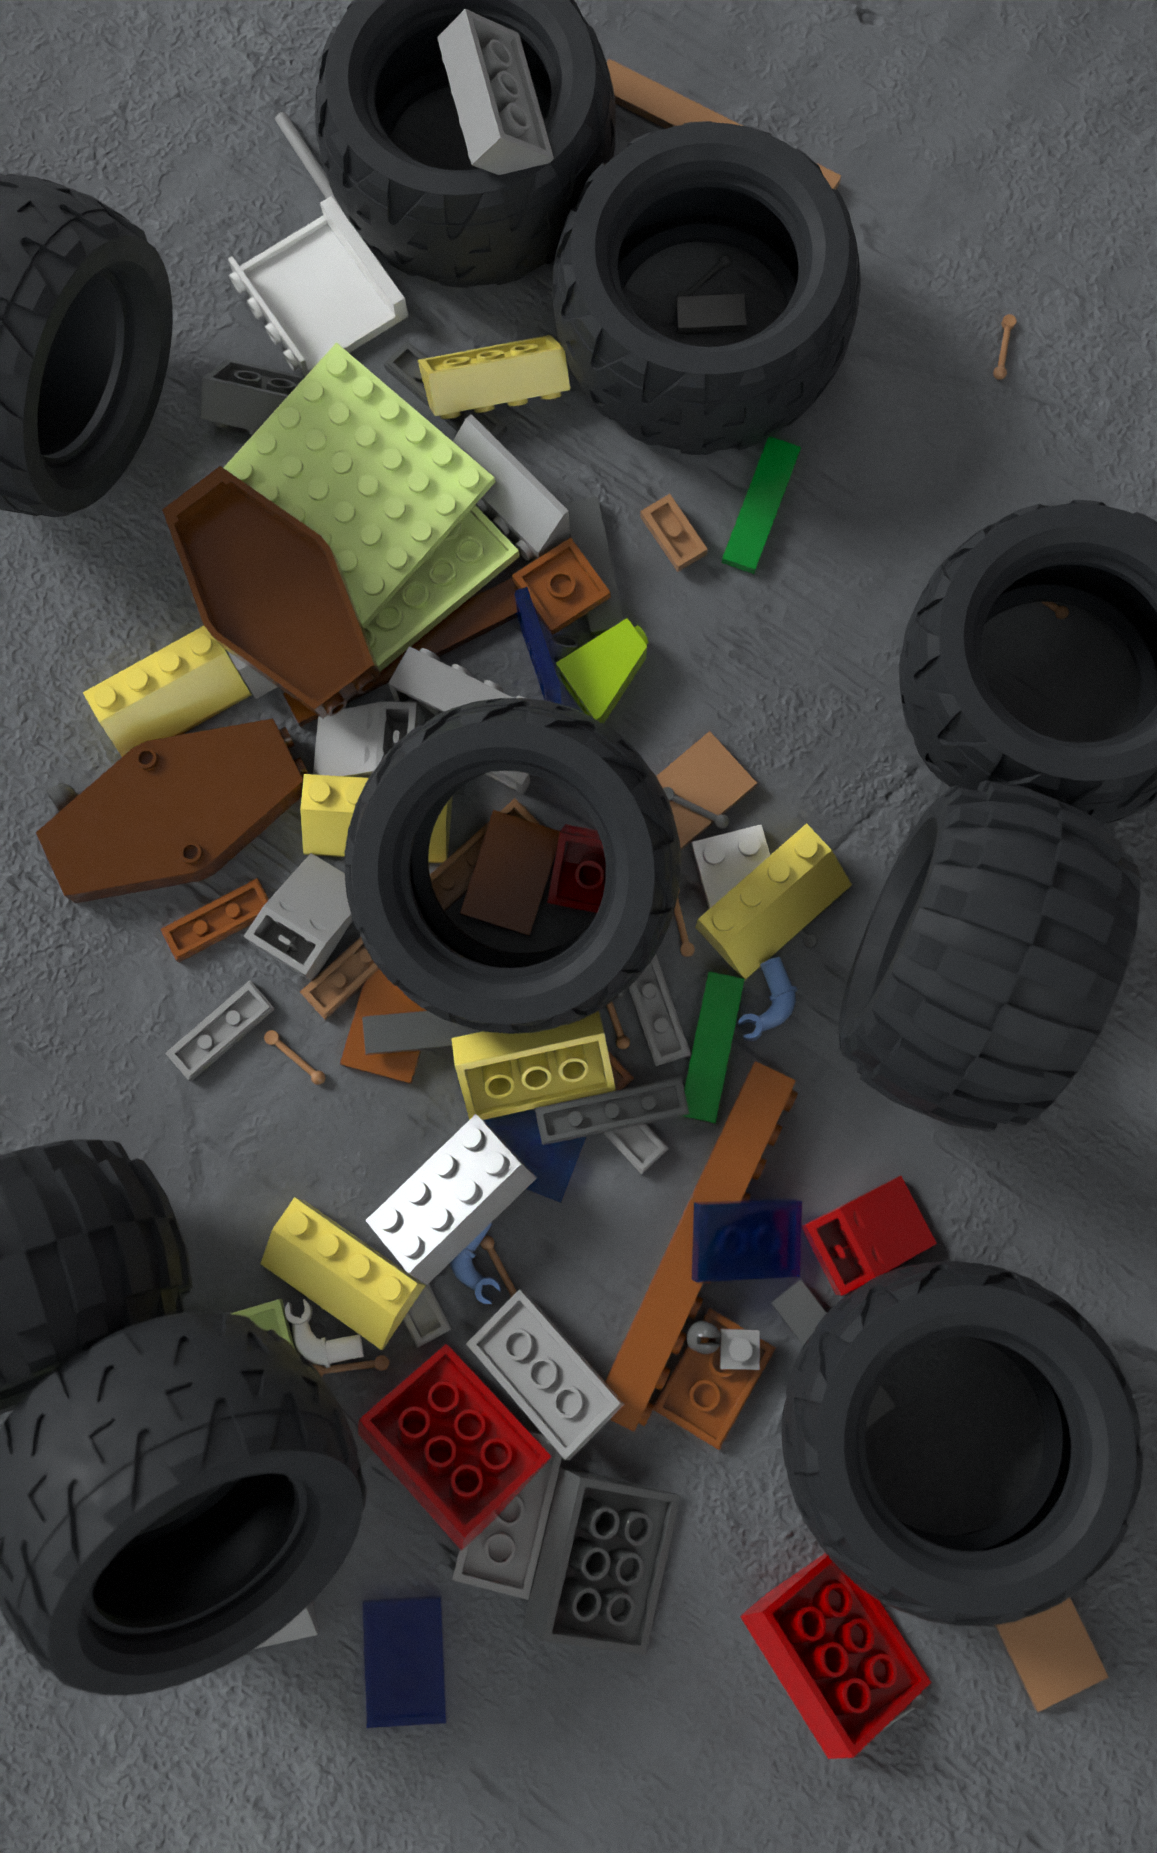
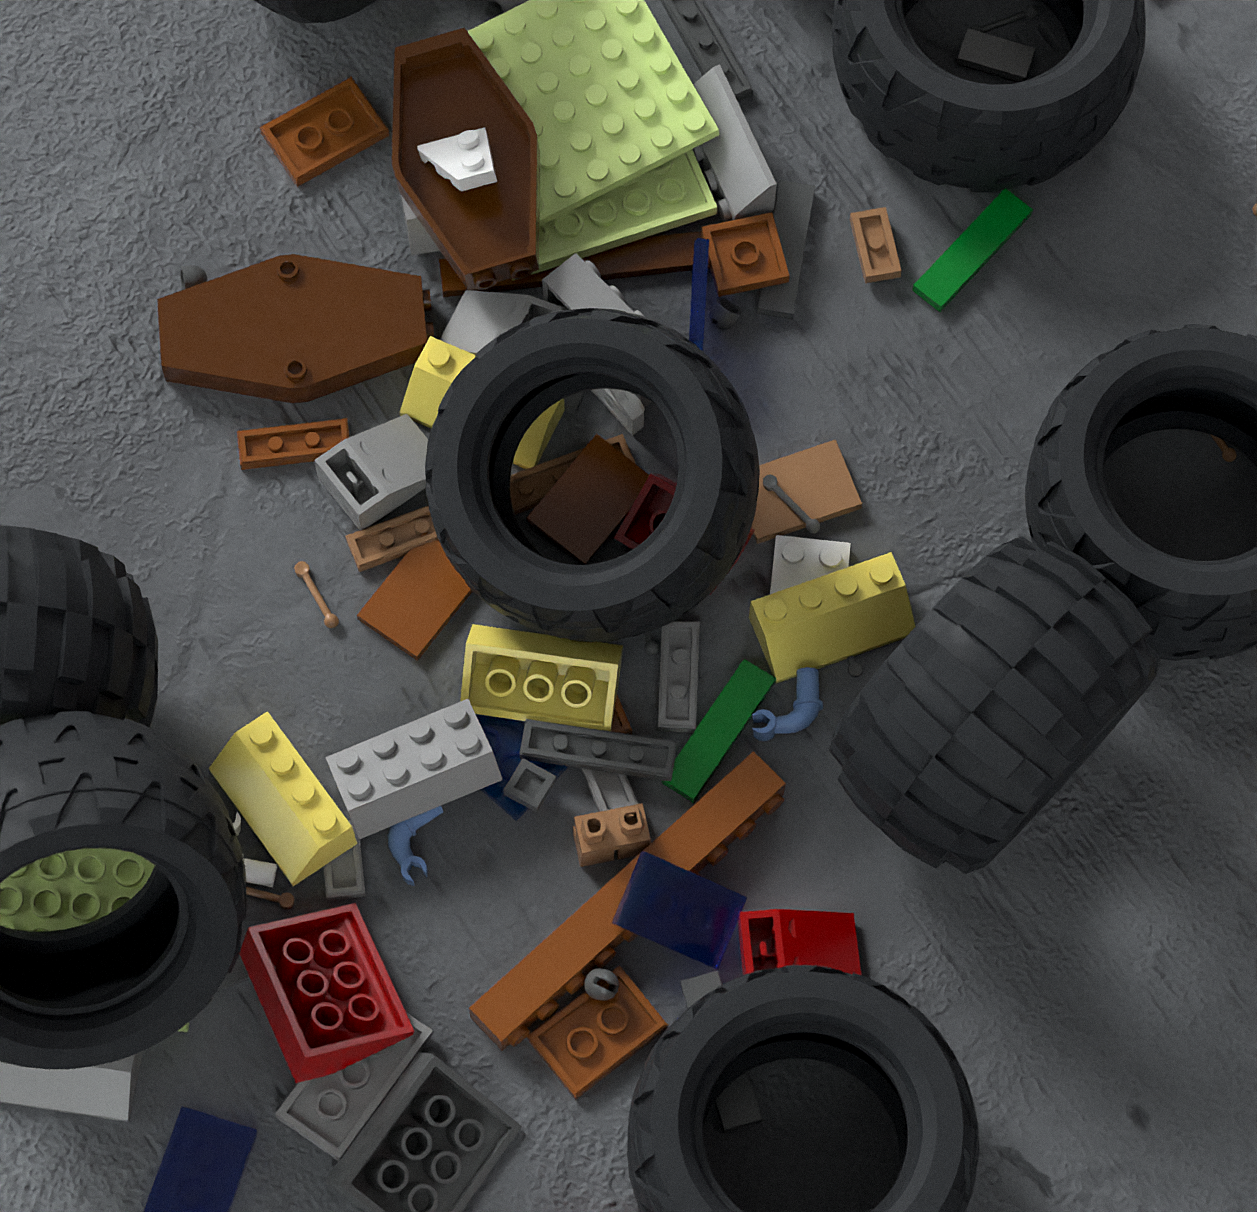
camera: 15 degrees right, 10 degrees down
(129, 609) = (324, 131): none -> dark orange tile
(167, 692) = (332, 217): light yellow slope -> none
(220, 1031) = (256, 544): light grey tile -> none
(268, 595) = (462, 159): none -> white wing
(409, 1032) = (444, 608): dark grey tile -> none
(488, 1244) = (437, 891): medium nougat hinge -> none
(495, 376) = (759, 40): light yellow slope -> none
(545, 1374) = (437, 959): light grey plate -> none
(563, 1171) = (529, 785): none -> dark grey plate
(604, 668) = (757, 344): lime slope -> none
(622, 1041) = (635, 694): medium nougat hinge -> none
(655, 1188) = (610, 830): none -> medium nougat hips
(687, 949) = (732, 632): medium nougat hinge -> none
(740, 1349) = (632, 1009): light grey plate -> none

